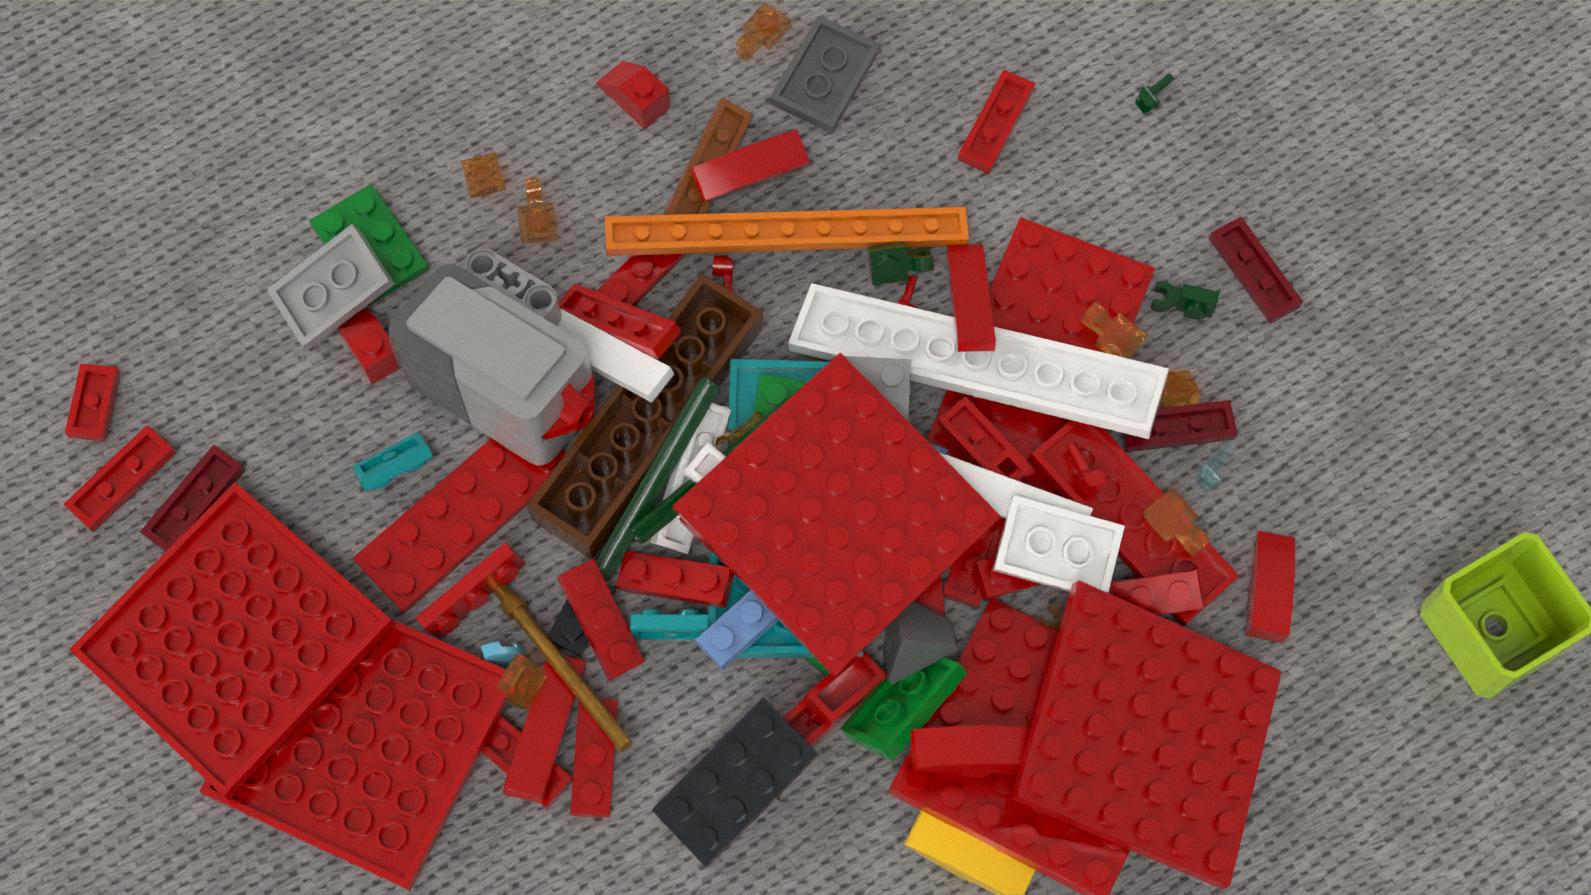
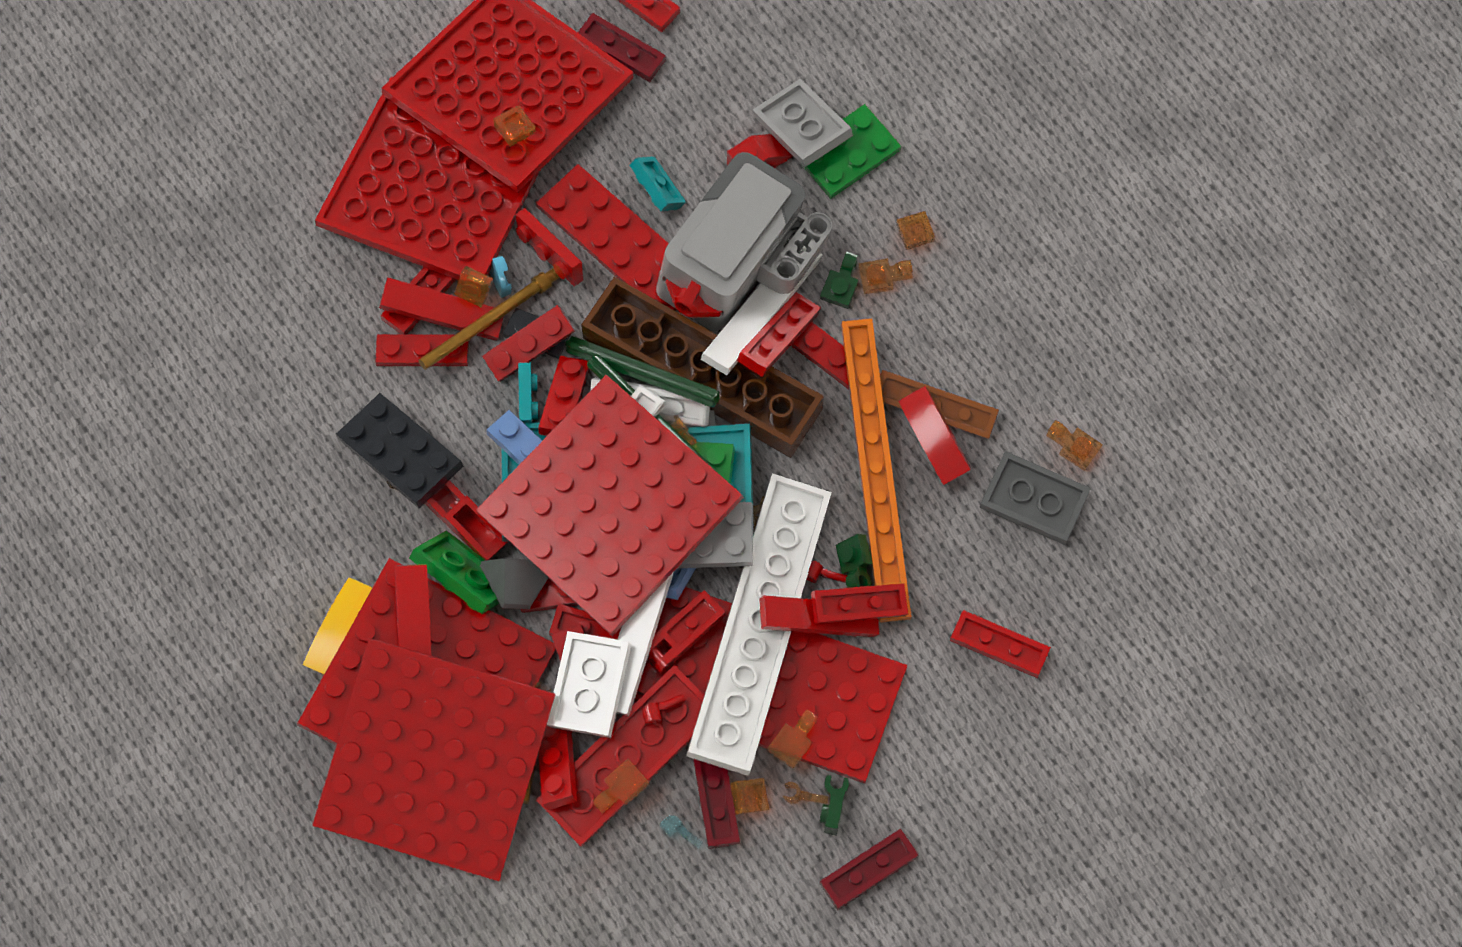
camera: 90 degrees right, 0 degrees up
(305, 619) = (514, 125): none -> clear orange plate
(546, 262) = (841, 285): none -> dark green plate
(636, 92) = (1002, 343): red slope -> none
(723, 268) = (843, 426): red hand -> none
(959, 250) = (859, 603): none -> red plate
(1147, 97) = (1038, 777): dark green hand -> none
(1170, 334) = (803, 795): none -> clear orange hand
(1271, 587) = (572, 873): red slope -> none

